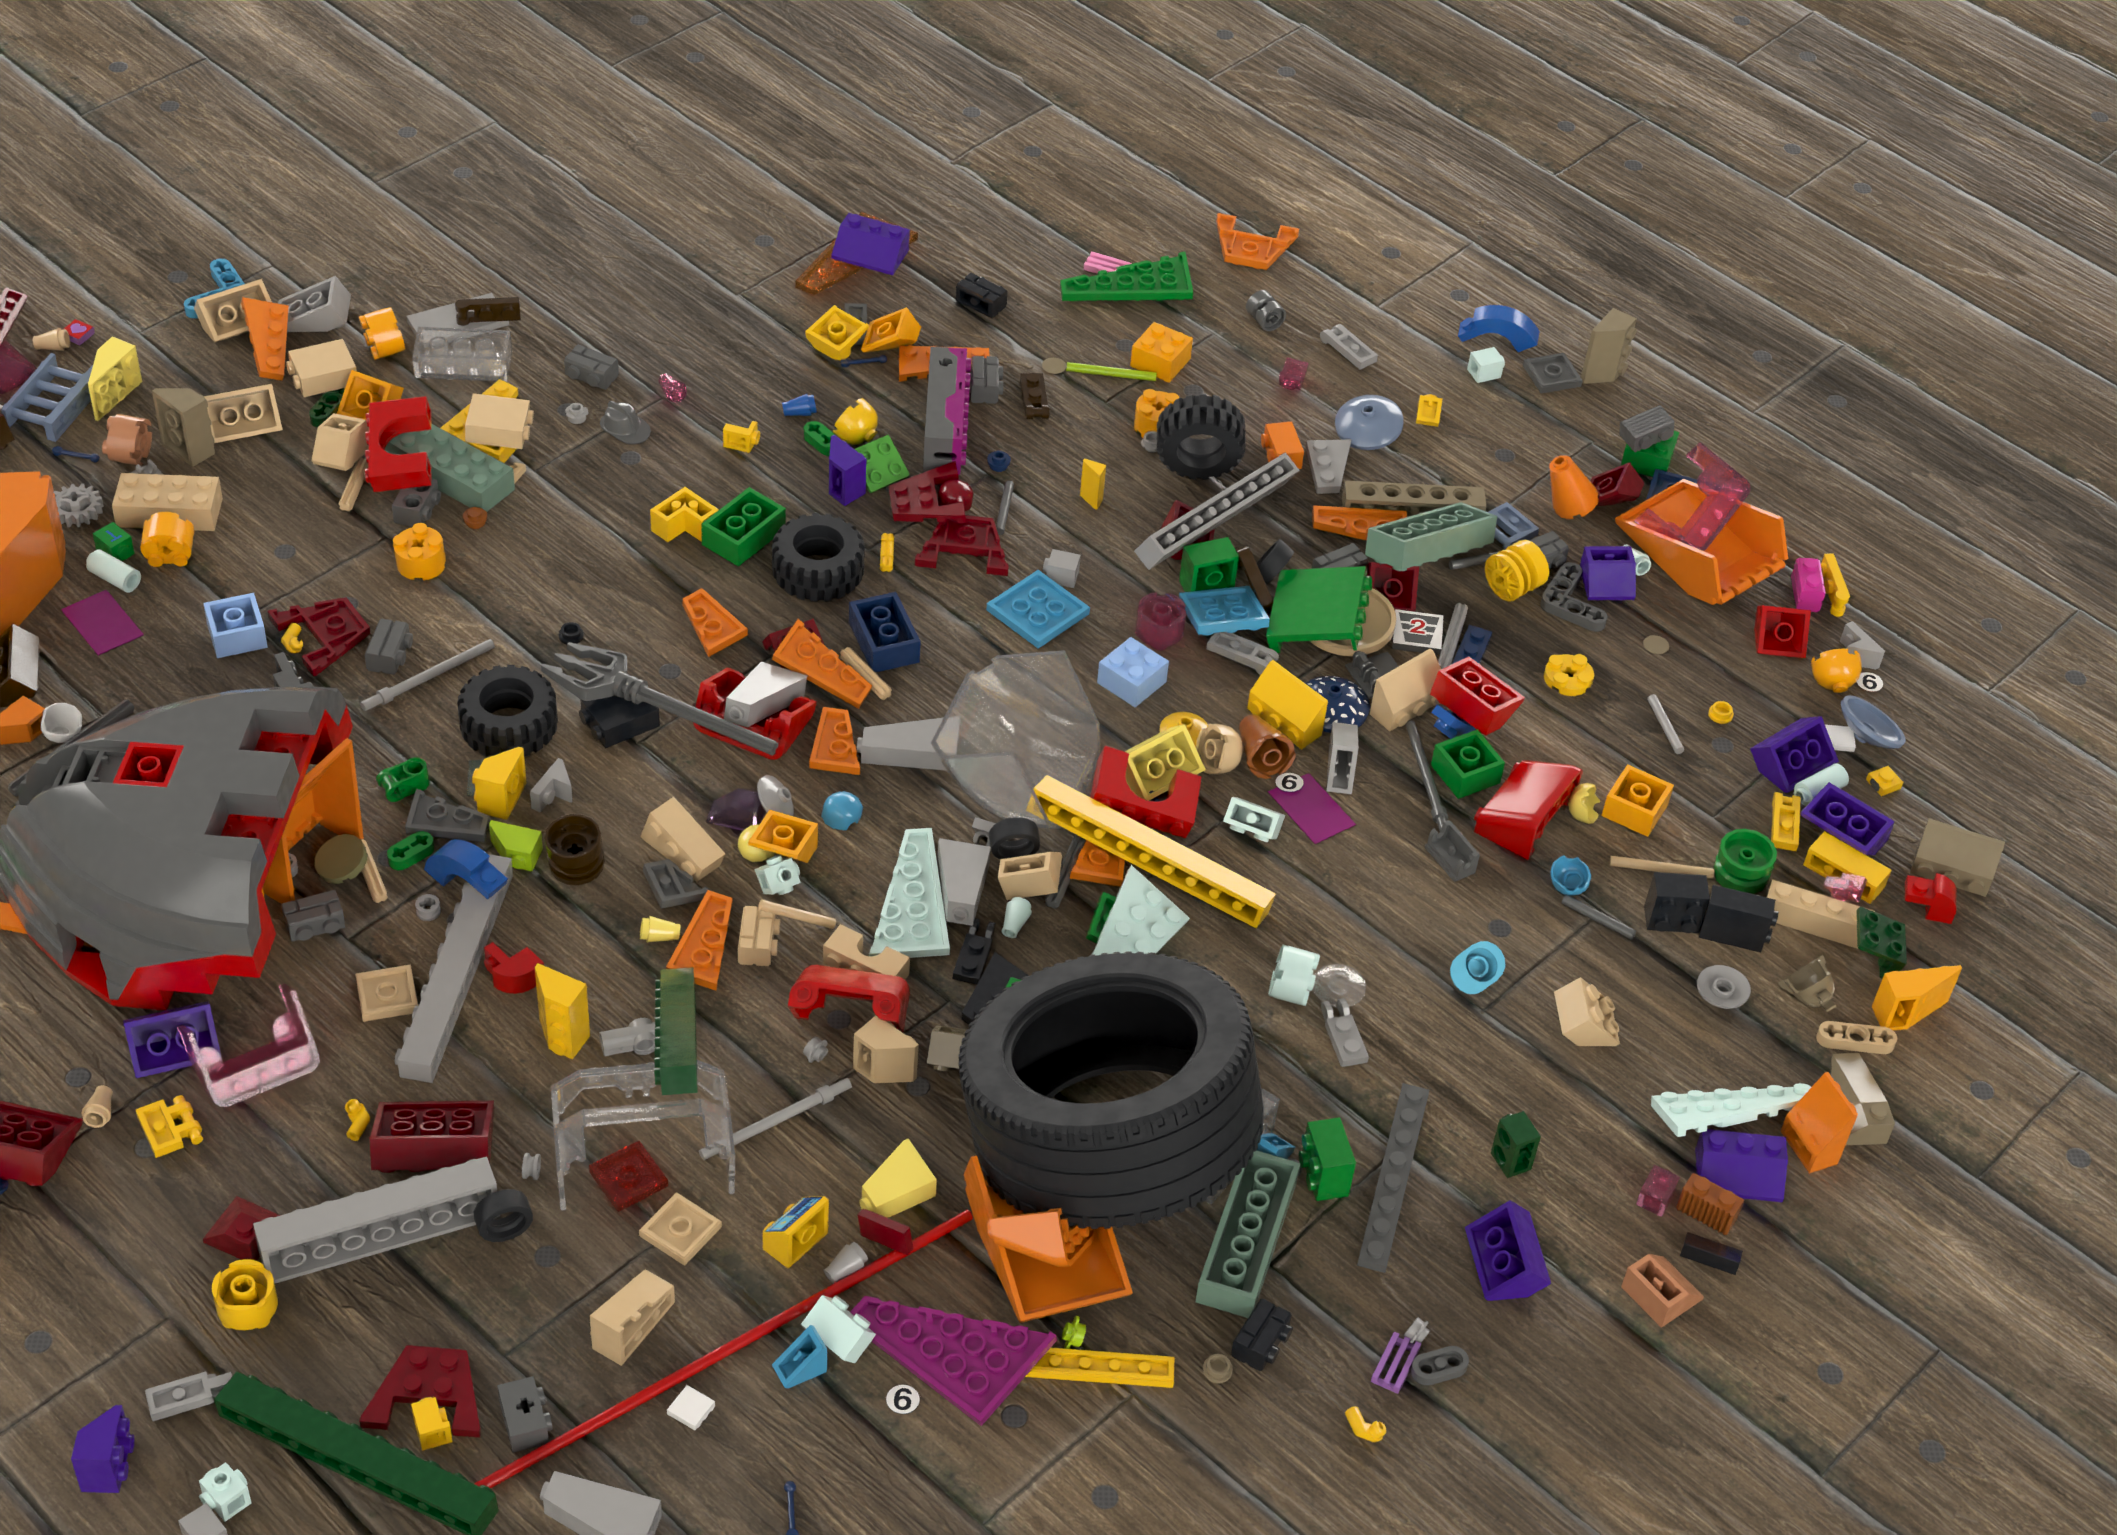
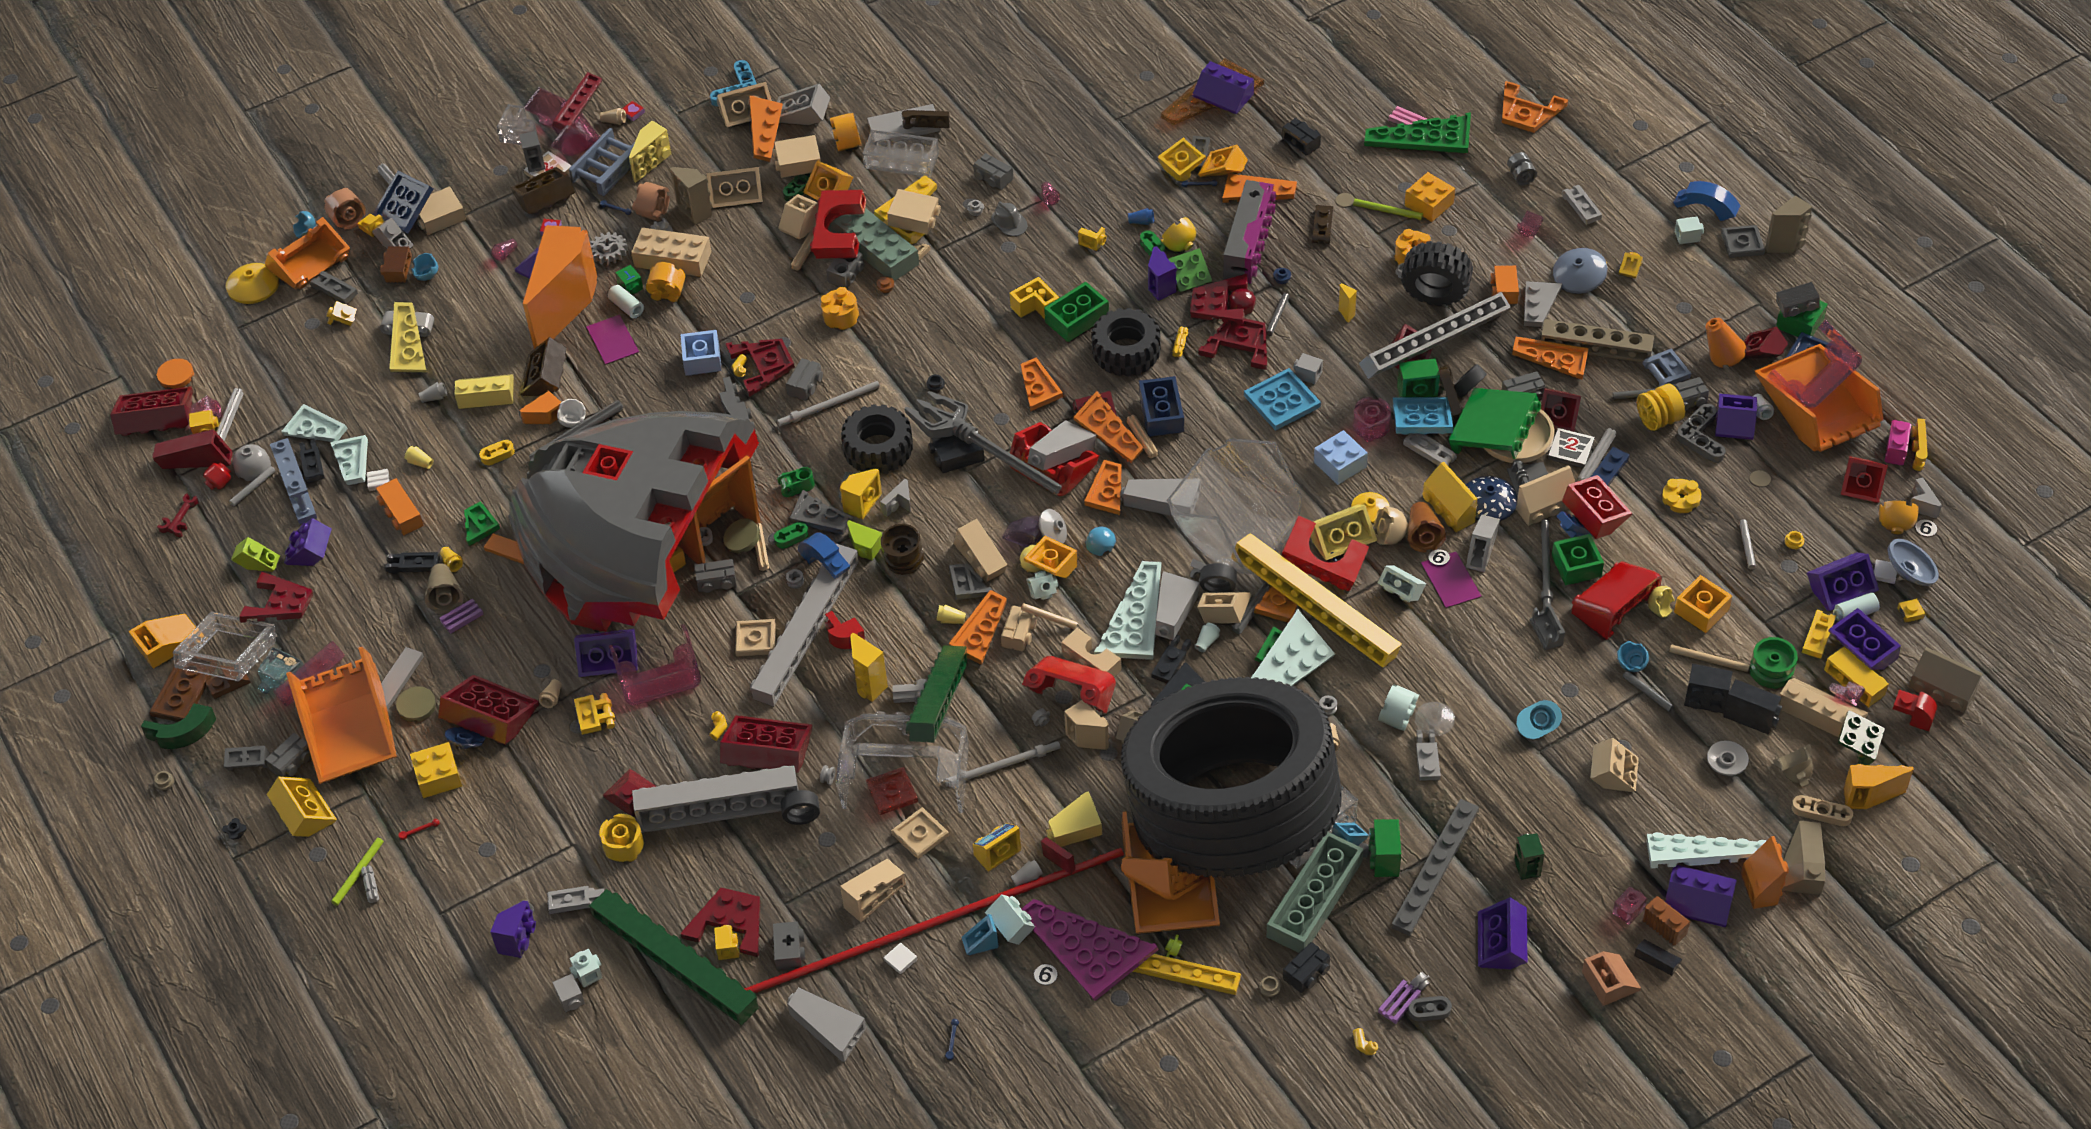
camera: 20 degrees right, 5 degrees up
(985, 379) = (1287, 207): dark grey brick -> none
(1430, 536) = (1597, 372): sand green brick -> none

